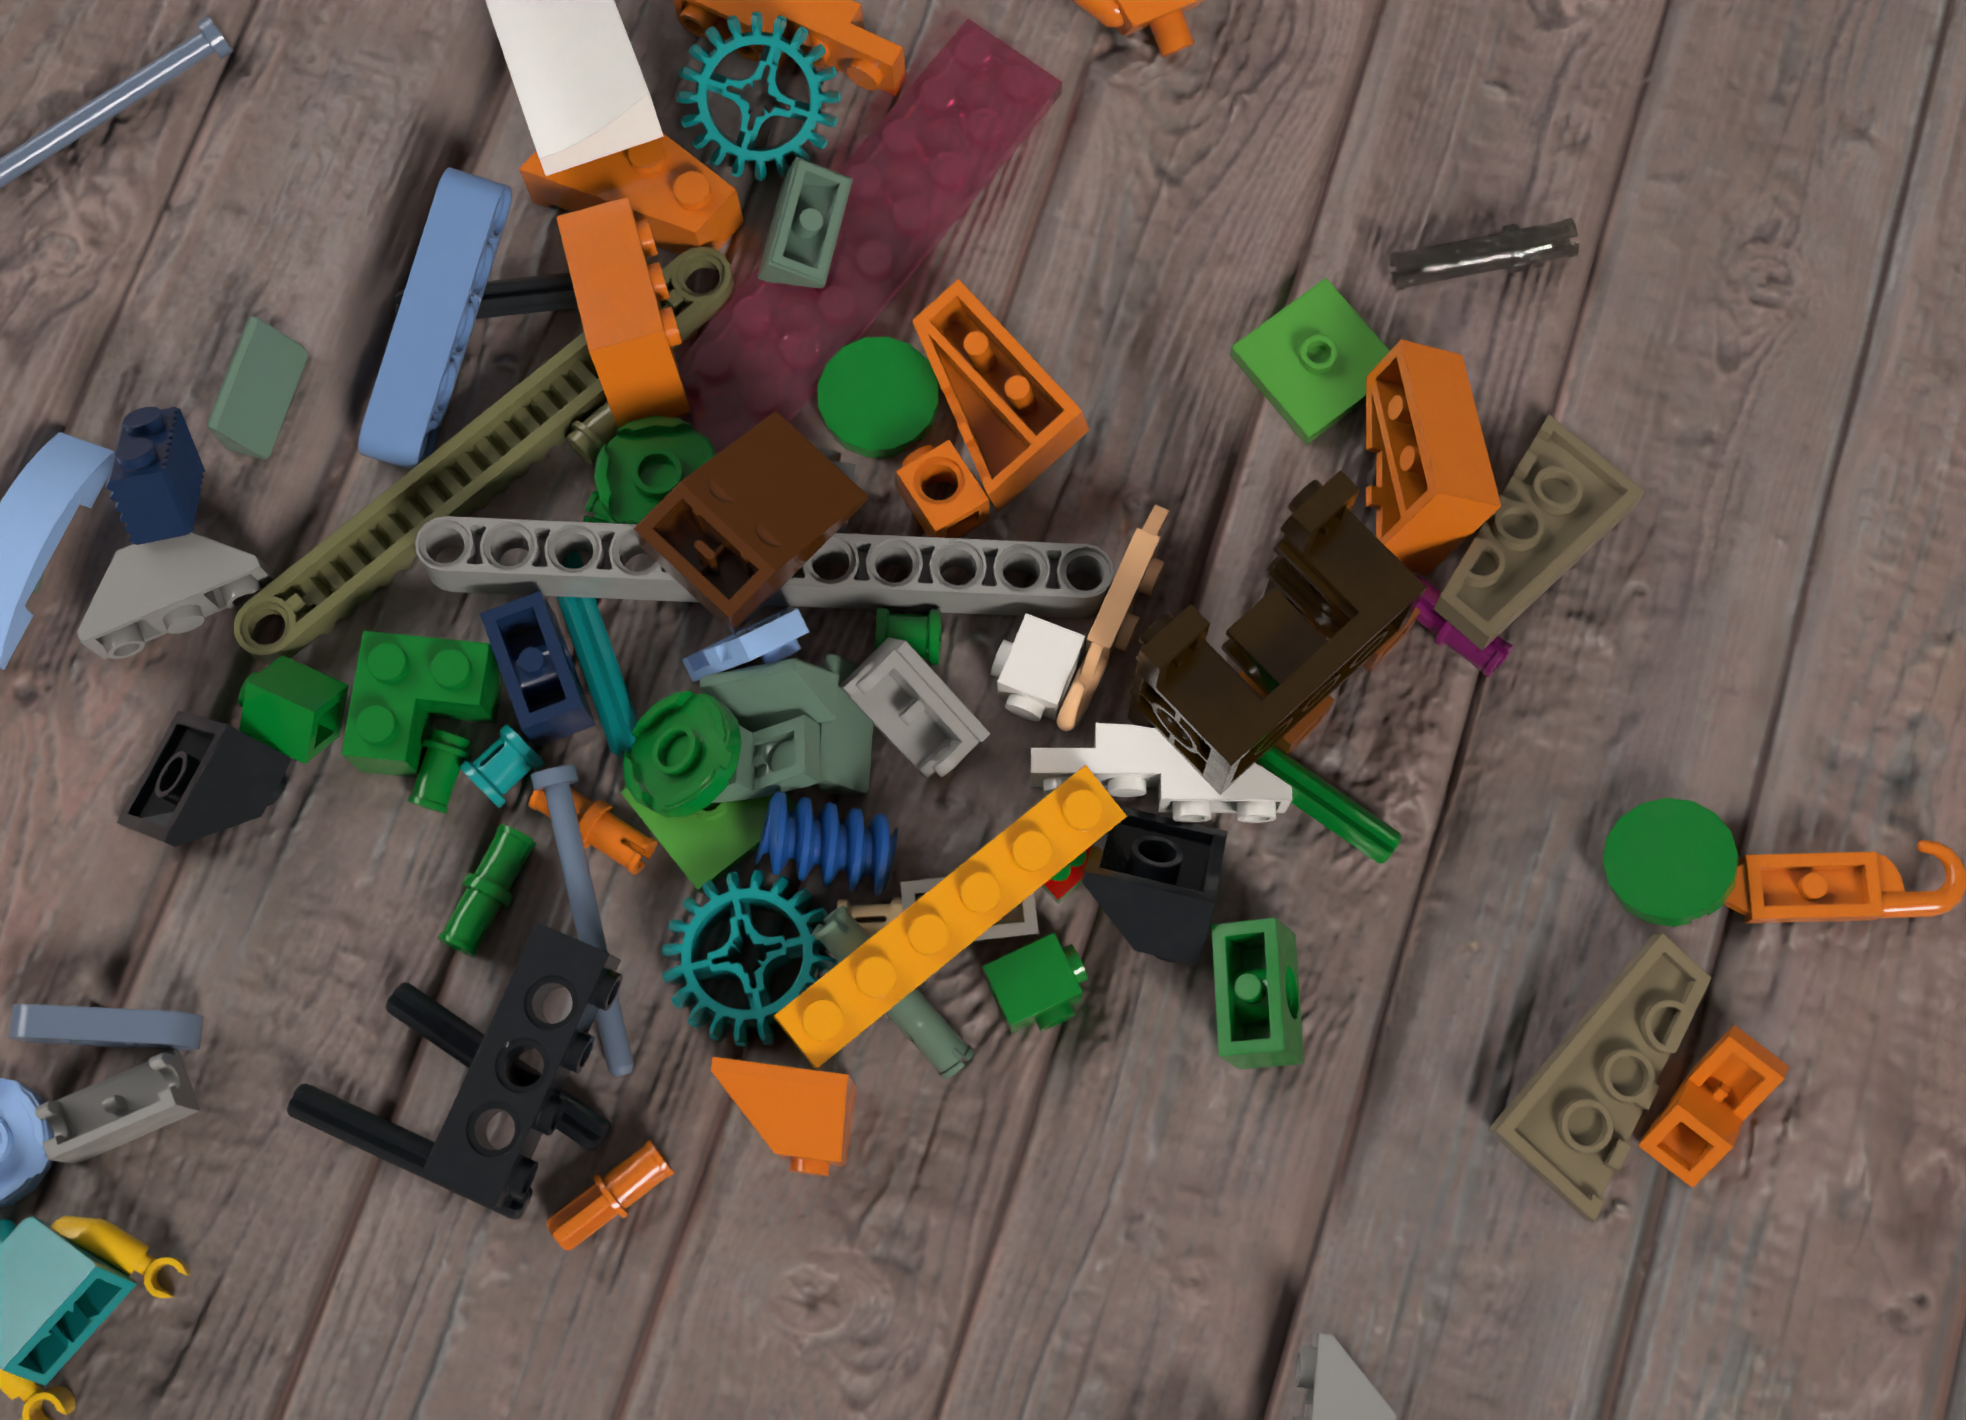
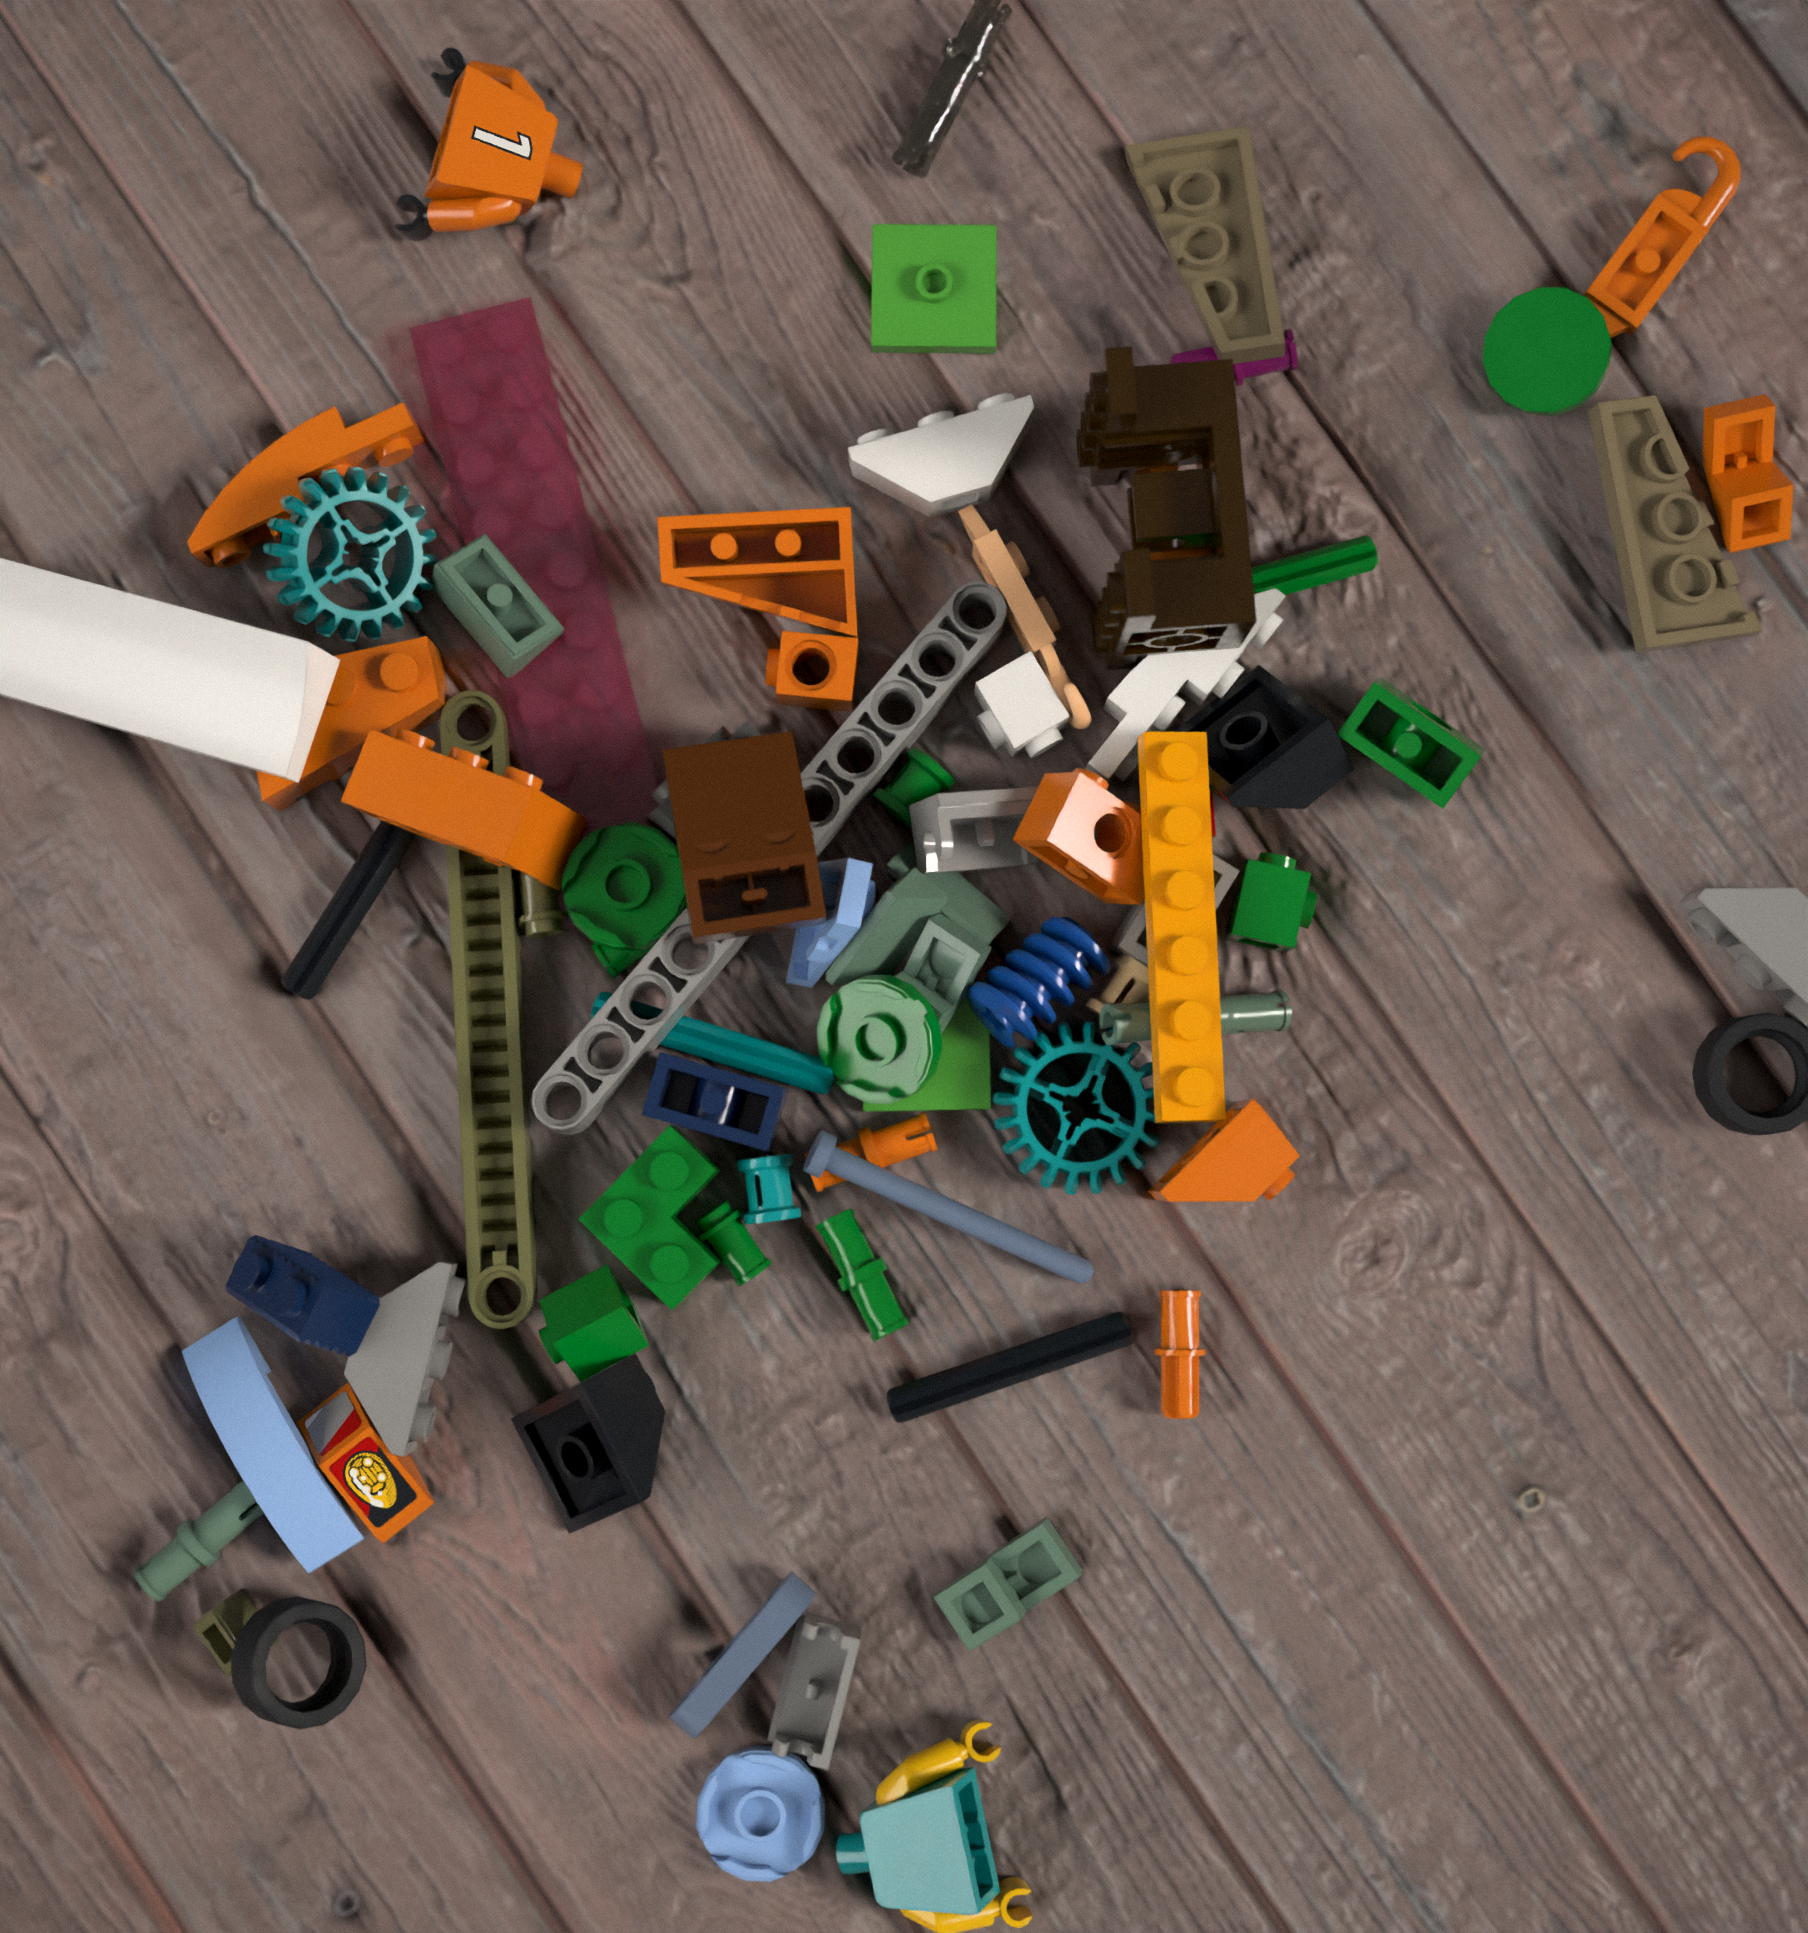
camera: 55 degrees left, 10 degrees up
(46, 642) = (350, 1452): none -> slope
(257, 390) = (279, 1159): sand green slope -> none
(315, 1201) = (1008, 1584): none -> sand green slope
(377, 1137) = (1024, 1483): black axle -> none
(435, 319) = (340, 966): medium blue beam -> none
(462, 1152) = (1077, 1441): black brick -> none
(878, 396) = (686, 658): green tile -> none
(956, 764) = (1061, 834): none -> orange brick
(1193, 465) = (947, 457): none -> white slope
(1429, 455) = (1091, 265): orange wedge -> none

